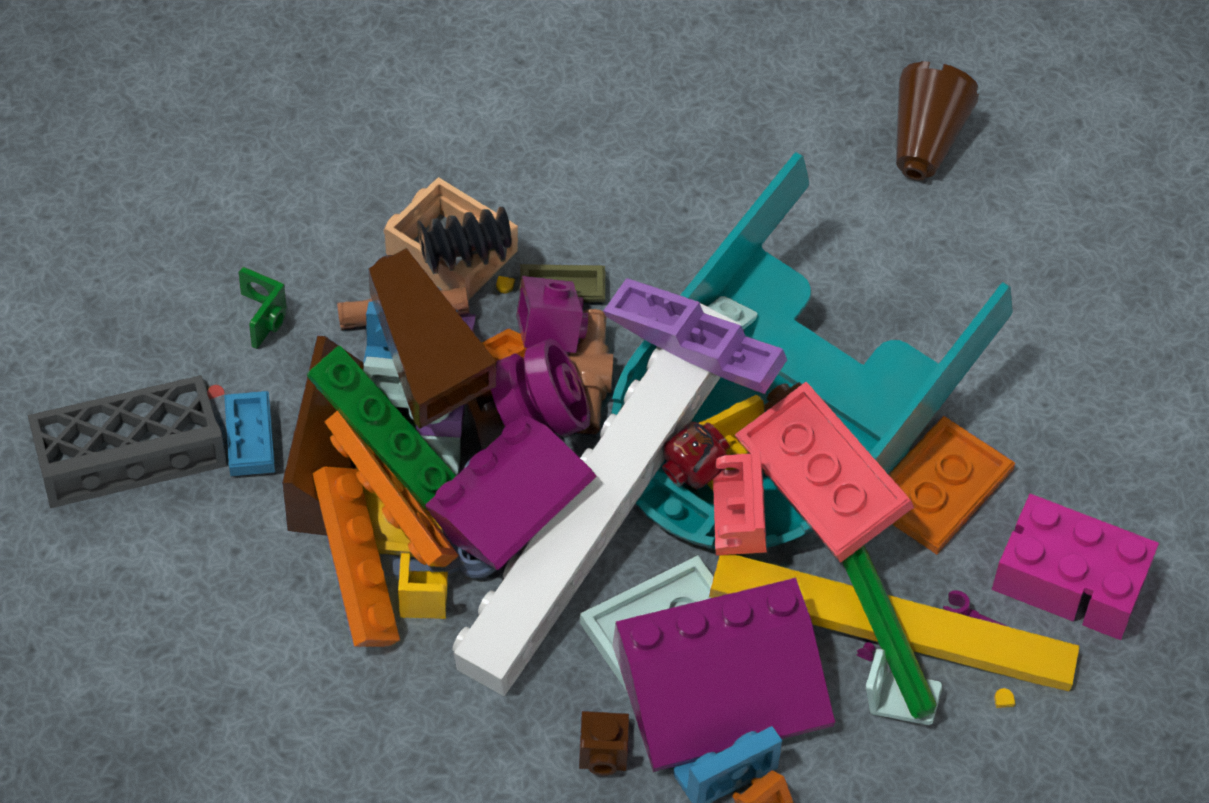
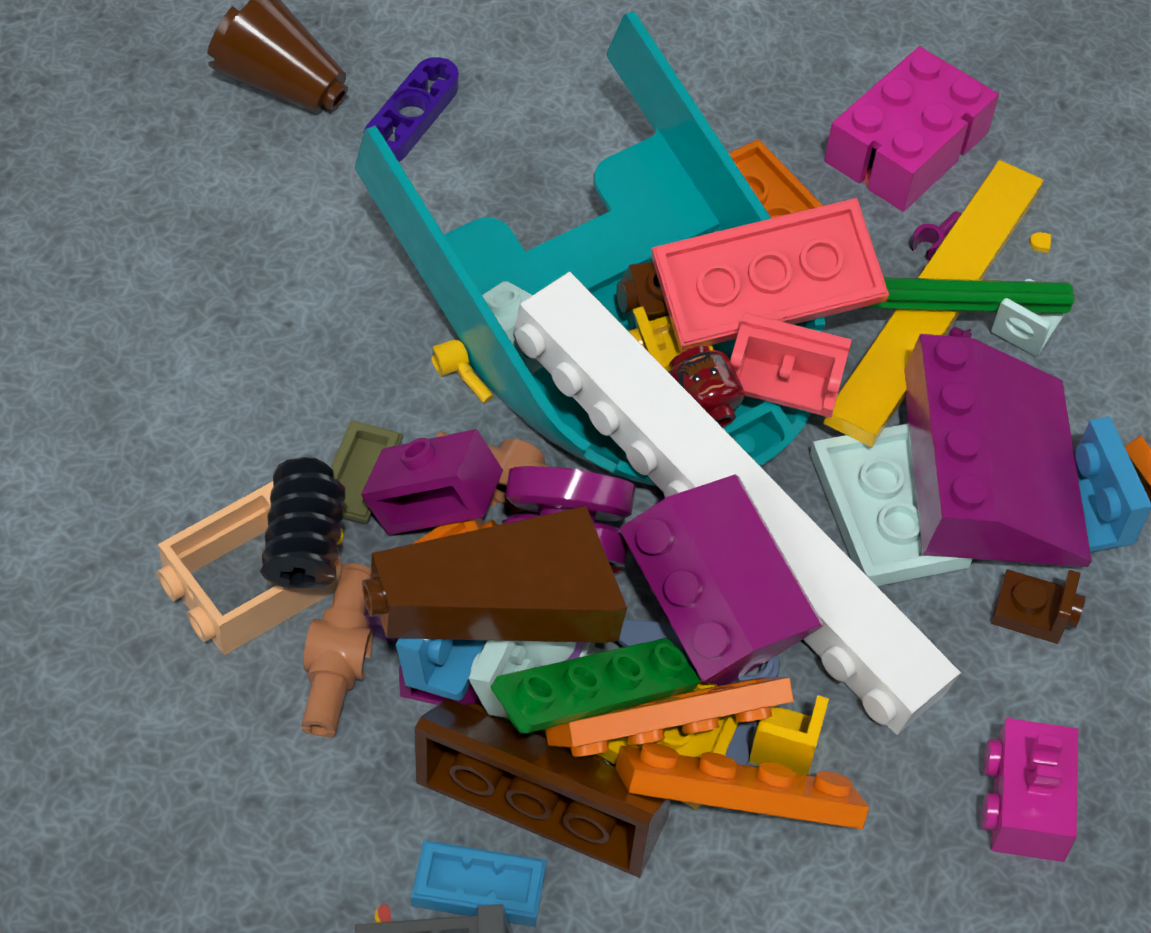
camera: 75 degrees left, 0 degrees up
(272, 312) = (289, 805): green bracket -> none
(426, 756) = (1032, 790): none -> dark pink brick
(696, 337) = (578, 315): medium lavender slope -> none
(942, 215) = (415, 93): none -> dark purple beam

